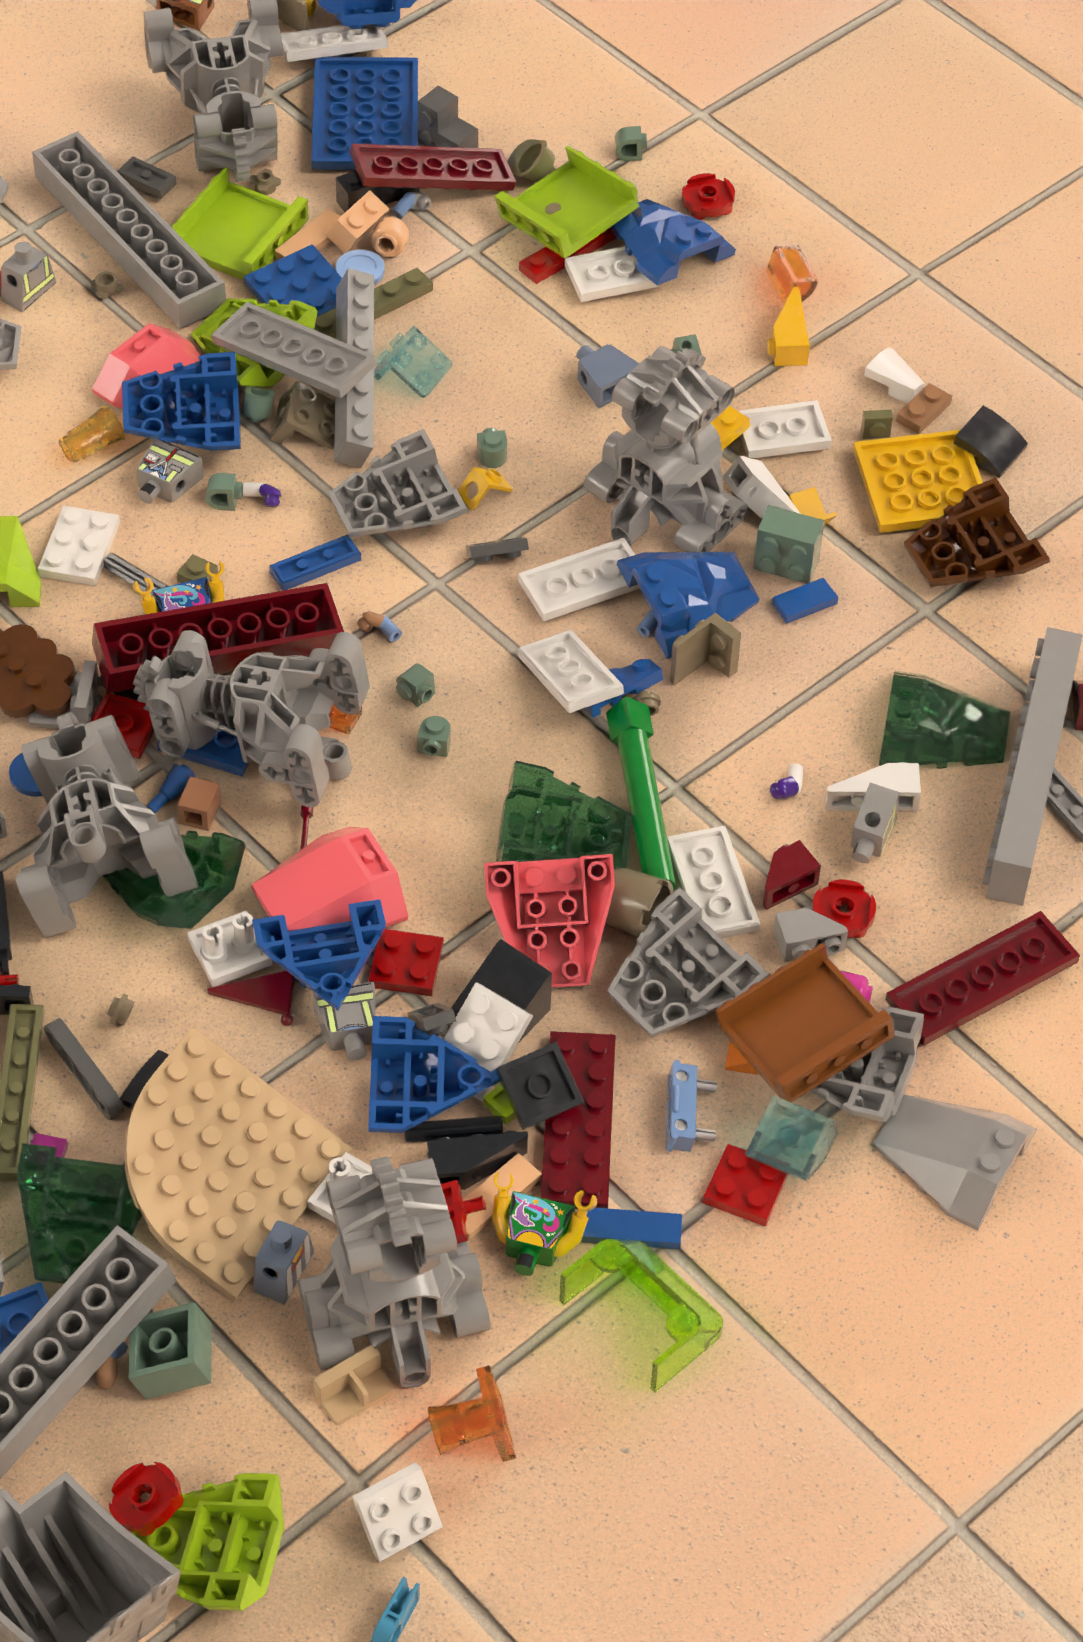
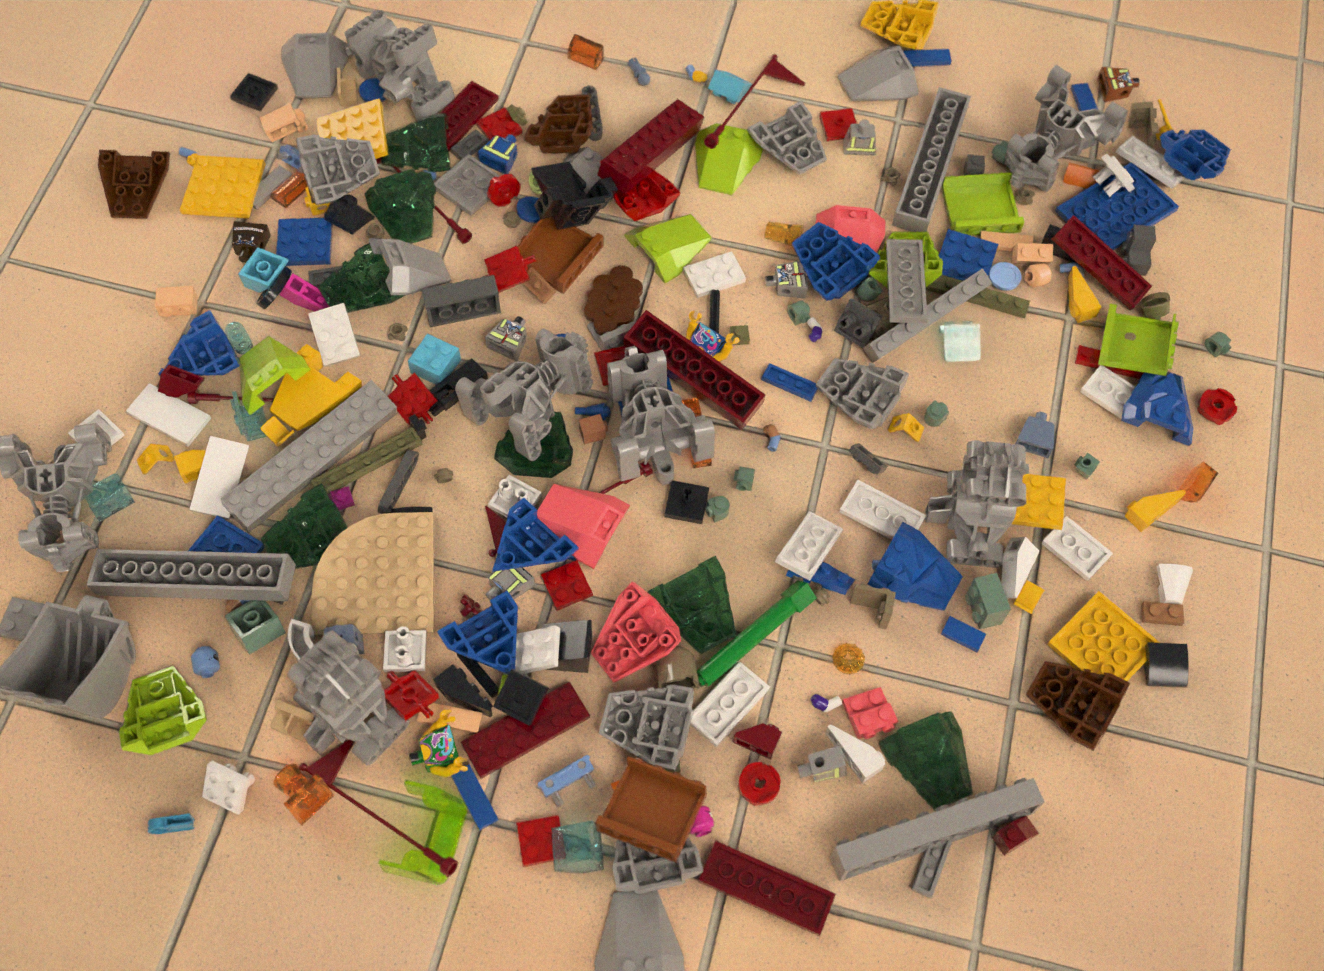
camera: 55 degrees right, 10 degrees up
(147, 177) = (977, 143): dark grey plate -> none
(154, 1512) = (175, 674): red plate -> none
(173, 1449) = (205, 662): none -> medium blue head
(177, 196) = (974, 165): none -> dark grey brick
(182, 159) = (999, 152): none -> sand green plate
(254, 1309) = (300, 638): none -> white brick
(293, 111) = (1080, 175): none -> orange slope
(300, 440) = (858, 323): none -> dark grey plate
(317, 72) = (1113, 167): none -> white plate
(350, 1086) = (469, 605): none -> dark red plant
(395, 766) = (686, 502): none -> black tile
(433, 1018) = (532, 618): dark grey plate -> none
(456, 219) = (1082, 301): none -> yellow slope
(459, 1380) = (328, 769): none -> dark red piece
(752, 737) = (842, 664): none -> clear yellow gear
(804, 930) = (725, 773): light grey slope -> none
(837, 748) = (870, 713): none -> coral plate
(876, 424) = (1124, 595): olive plate -> none

